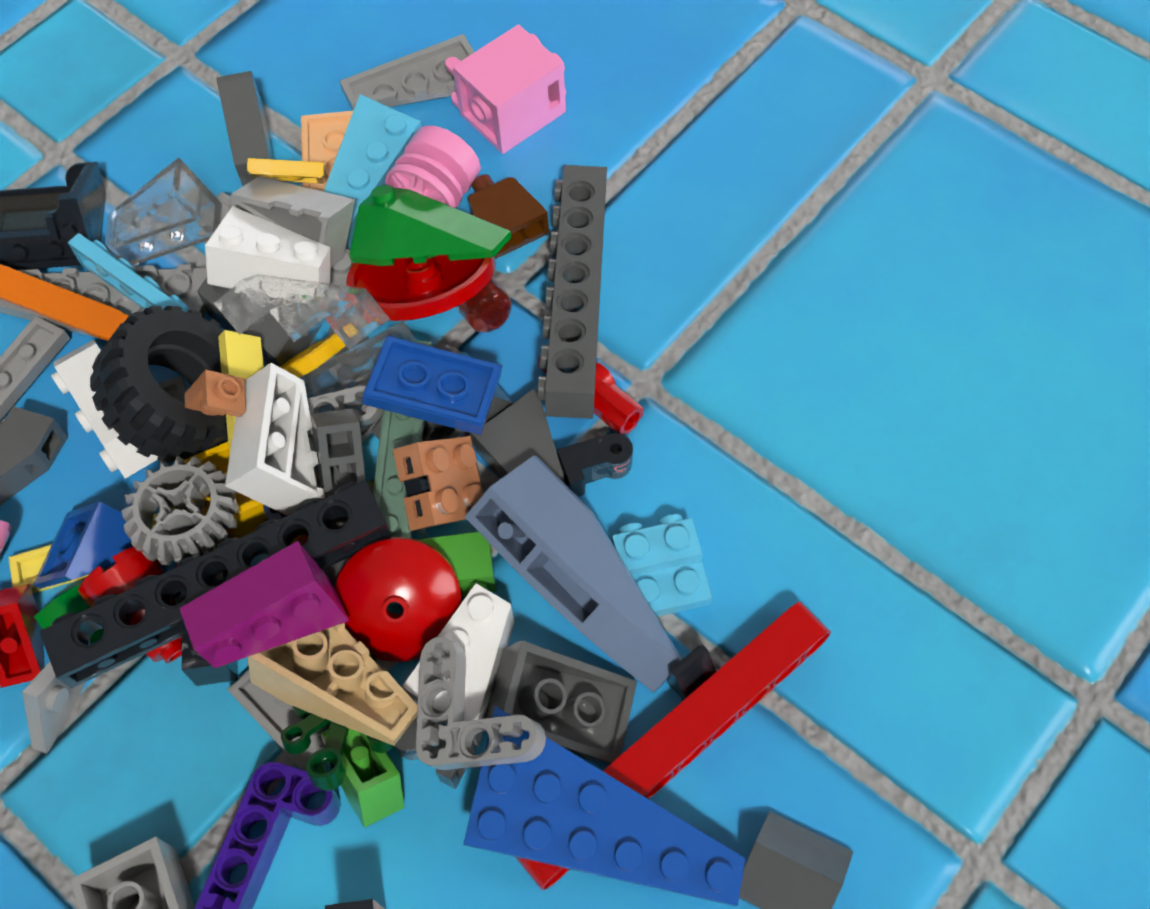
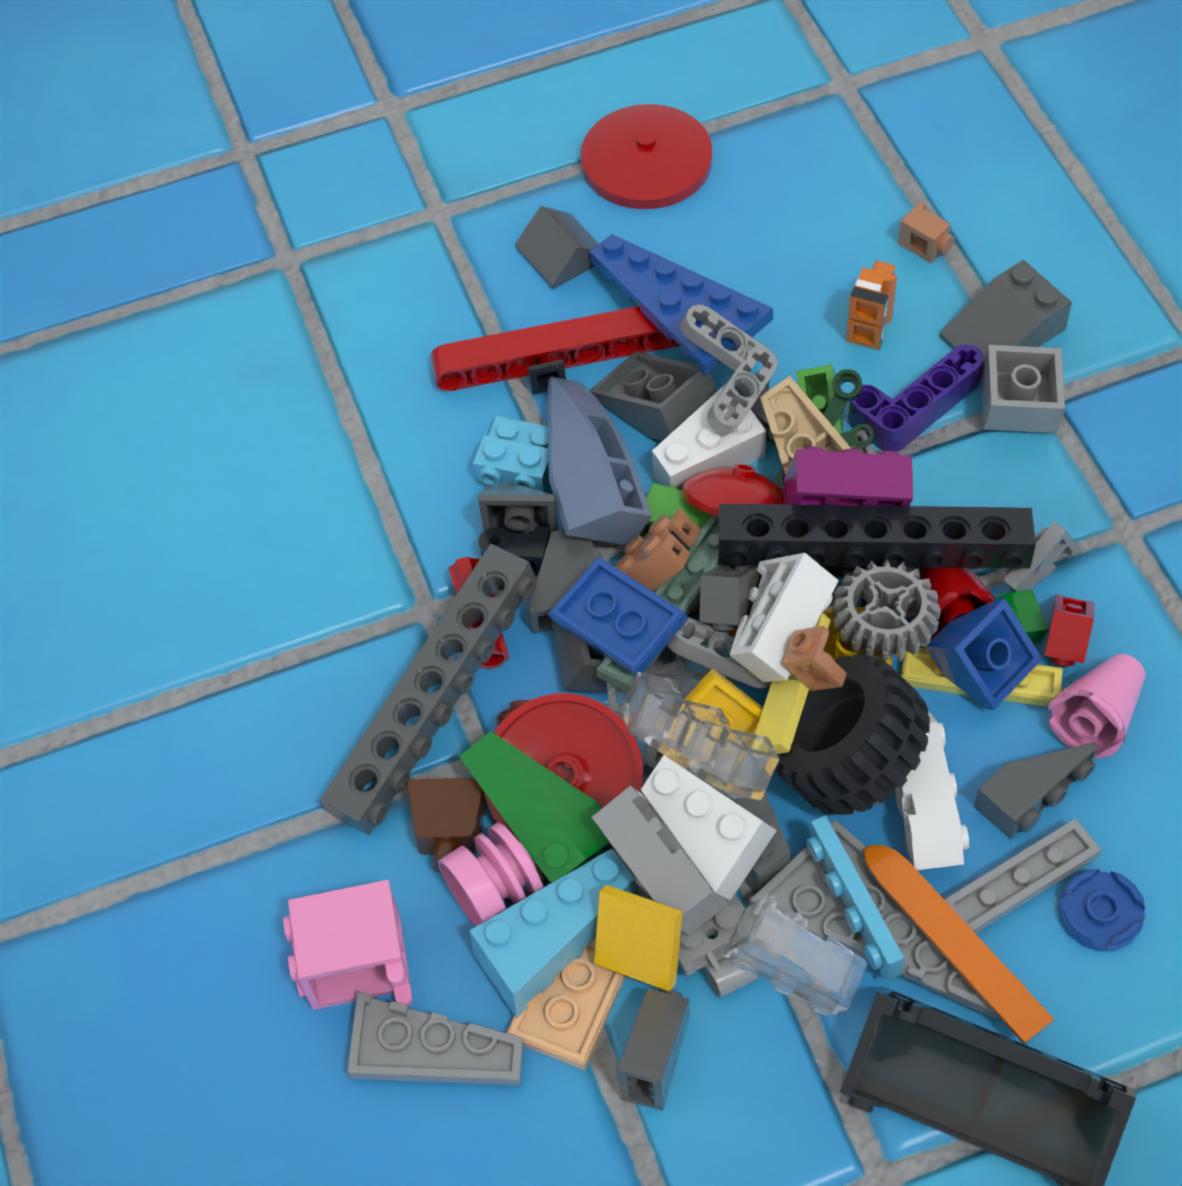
camera: 150 degrees left, 5 degrees down
(616, 483) = (517, 508): none -> dark grey slope

